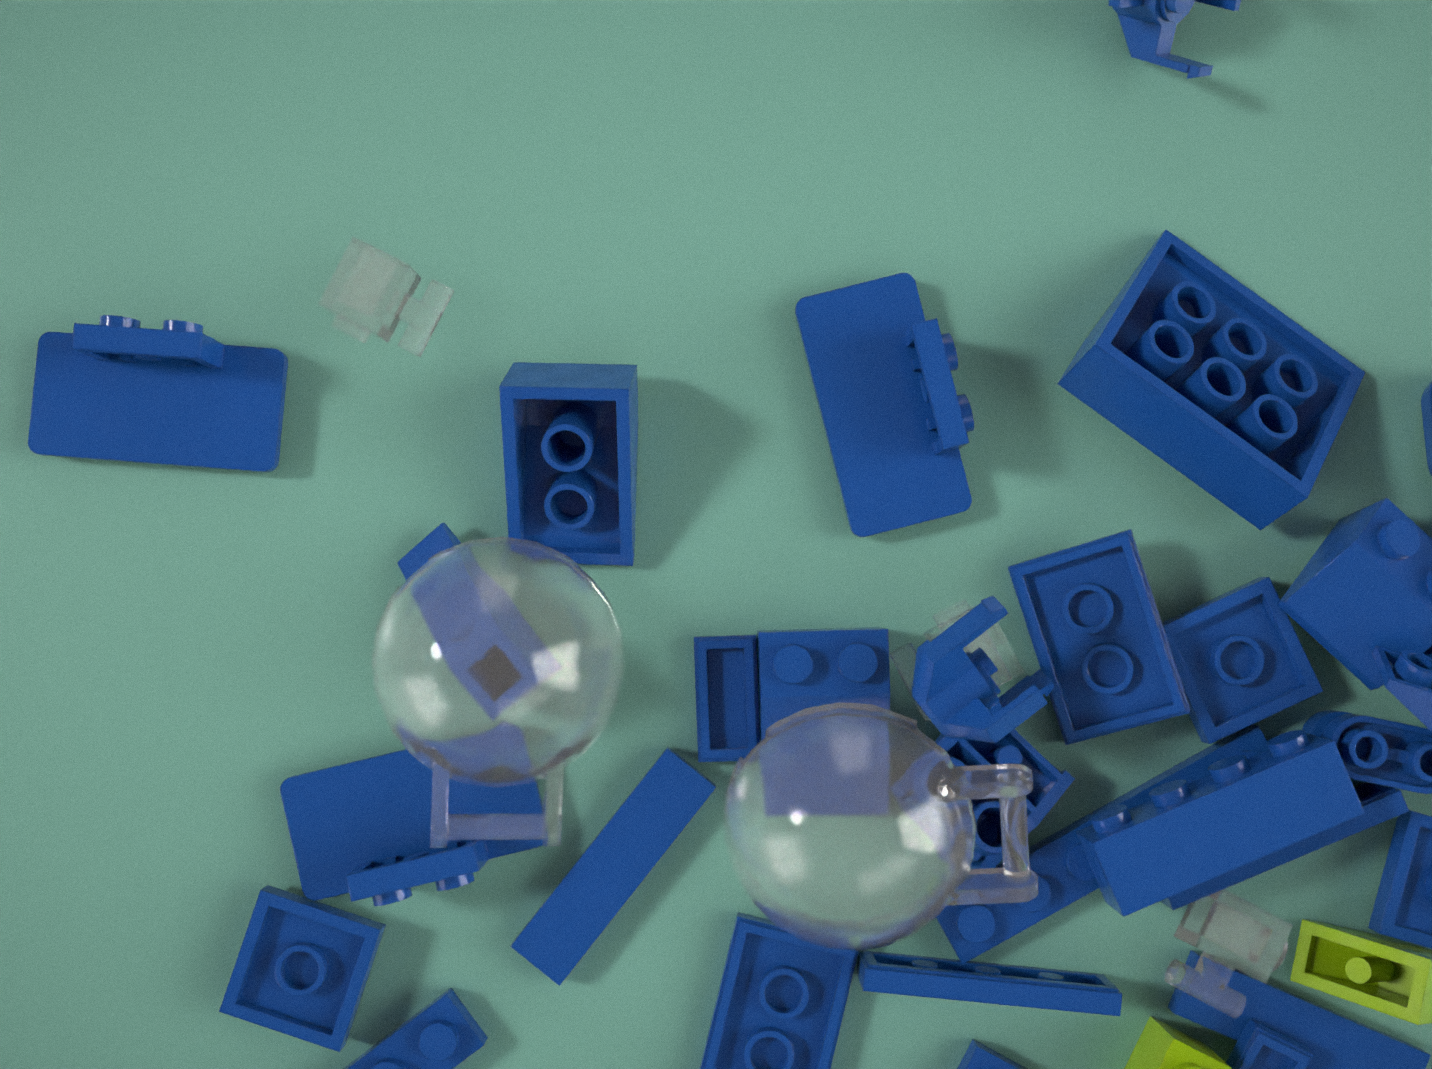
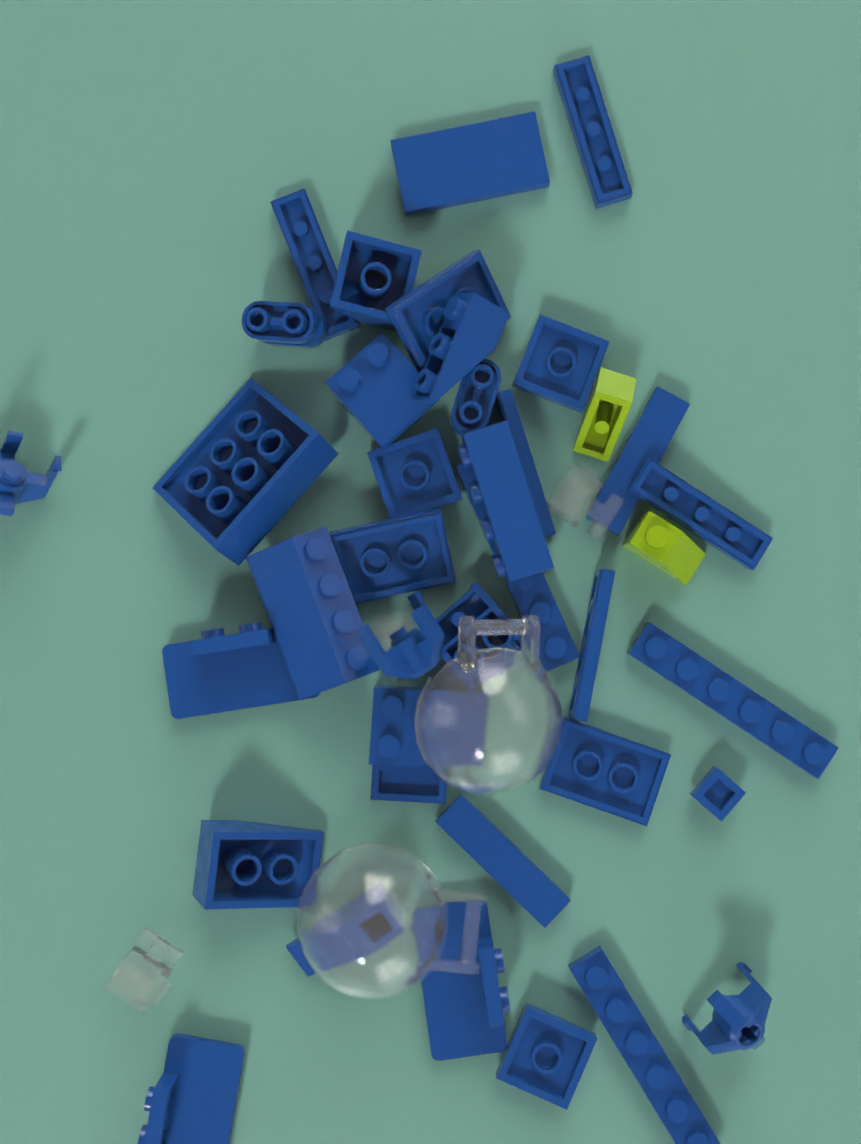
camera: 80 degrees left, 0 degrees up
(997, 514) = (311, 612): none -> blue slope

